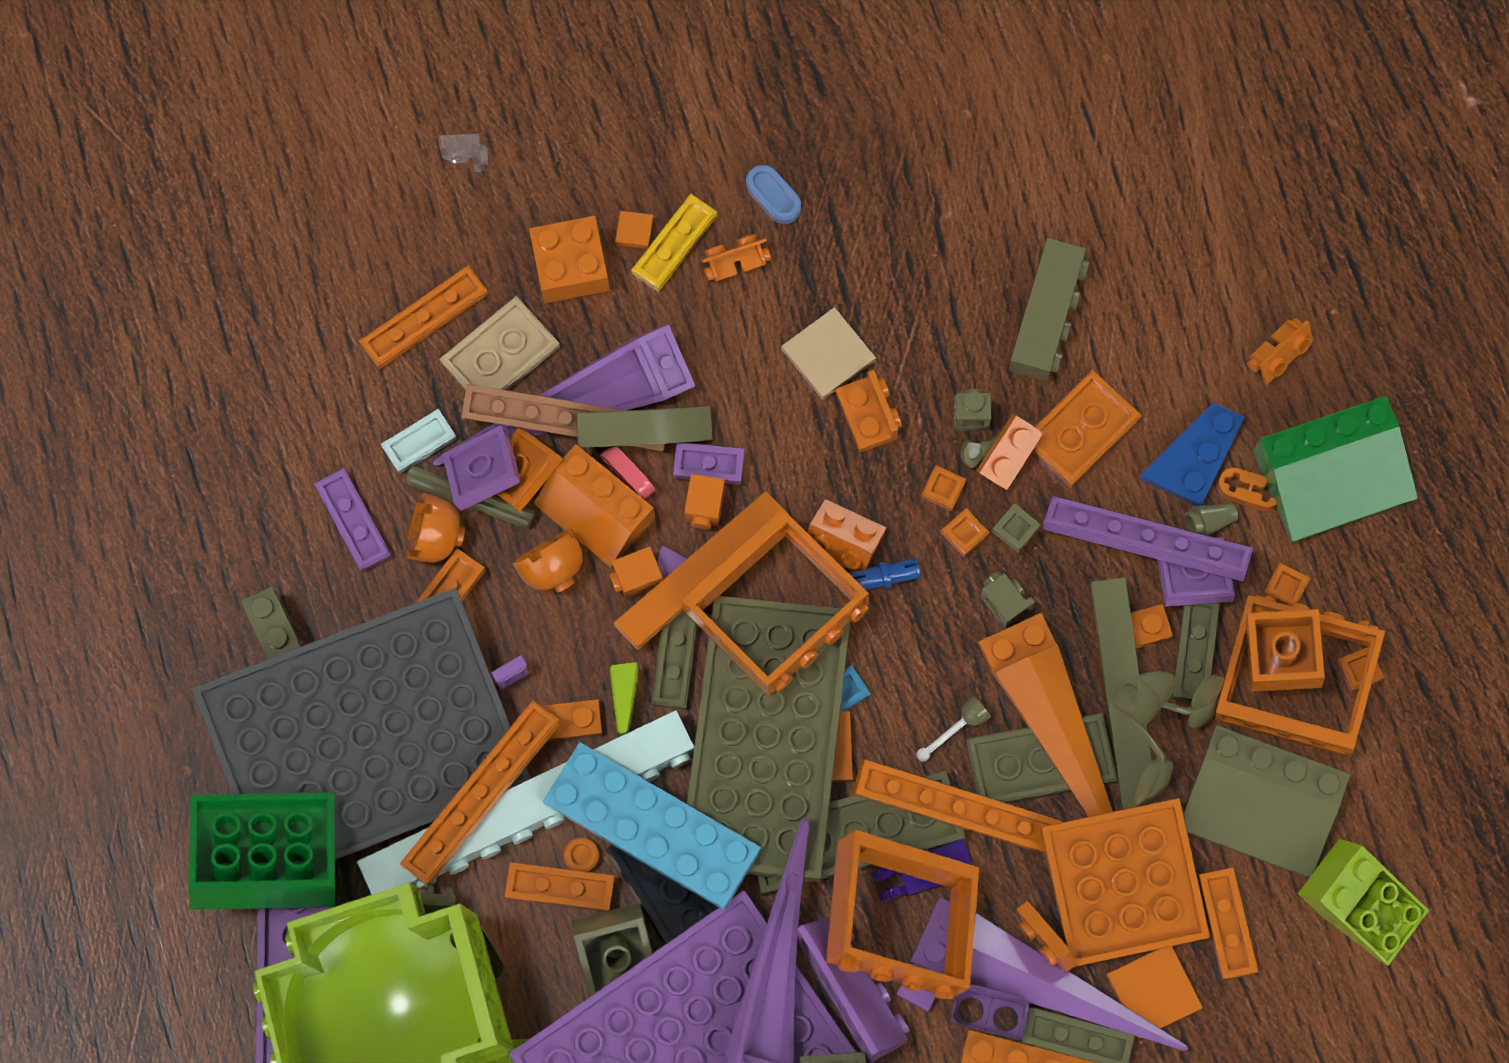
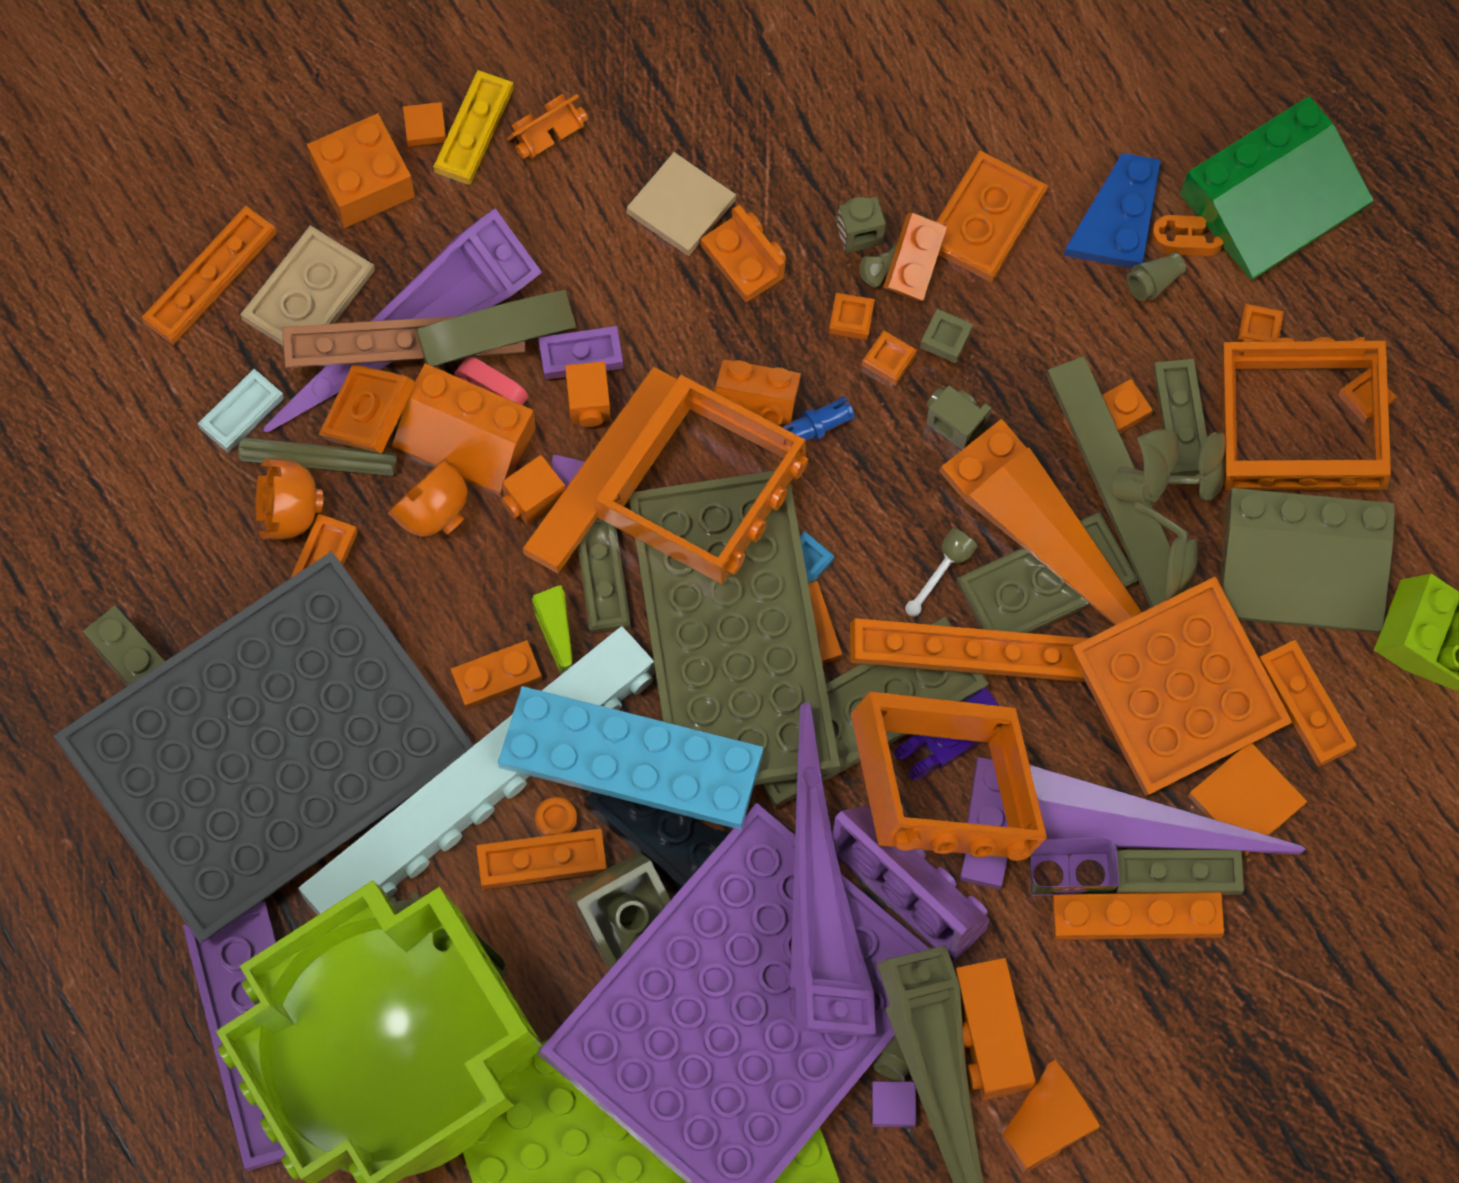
camera: 20 degrees left, 5 degrees down
(261, 851) = (185, 900): green slope -> none
(353, 520) = (188, 515): medium lavender tile -> none
(462, 147) = (205, 79): clear bracket -> none
(480, 793) = (422, 774): orange tile -> none
(481, 468) = (323, 416): medium lavender plate -> none
(510, 672) = (419, 635): medium lavender tile -> none
(773, 194) = (570, 50): medium blue tile -> none
(1047, 310) = (912, 98): olive brick -> none
(1053, 948) = (1120, 772): orange plate -> none
(1147, 538) = (1094, 312): medium lavender tile -> none
(1191, 586) = (1156, 335): medium lavender tile -> none
(1285, 650) = (1284, 385): orange brick -> none
(1292, 340) = (1187, 68): orange hinge -> none

